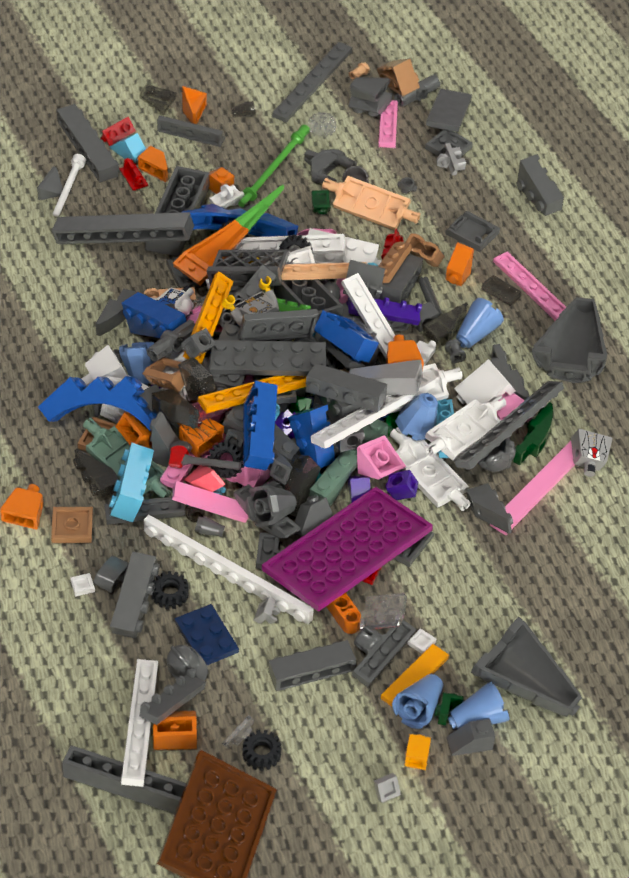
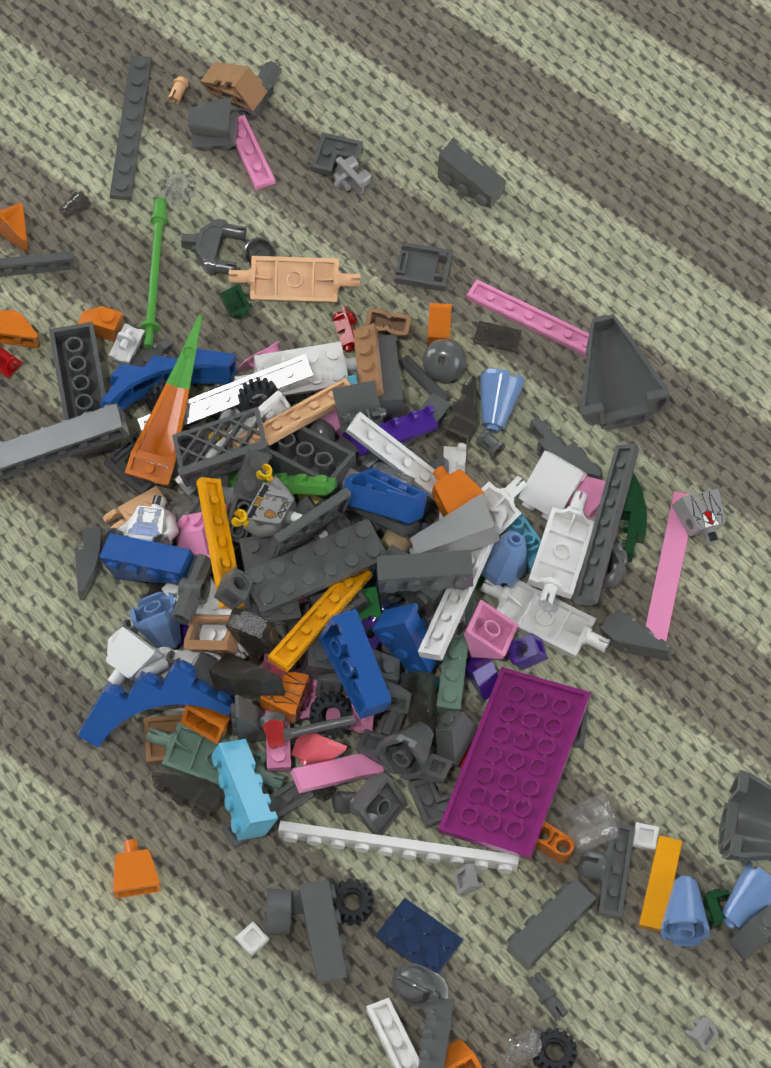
camera: 25 degrees left, 15 degrees up
(72, 525) = (199, 869): medium nougat plate -> none
(228, 534) = (378, 803): none -> dark grey slope
(280, 712) = (547, 996): none -> dark grey pin
(407, 185) = (318, 228): dark grey plate -> none
(417, 751) = (712, 975): light orange brick -> none
(449, 110) = (311, 104): dark grey tile -> none
(451, 287) = (454, 356): none -> dark grey cylinder

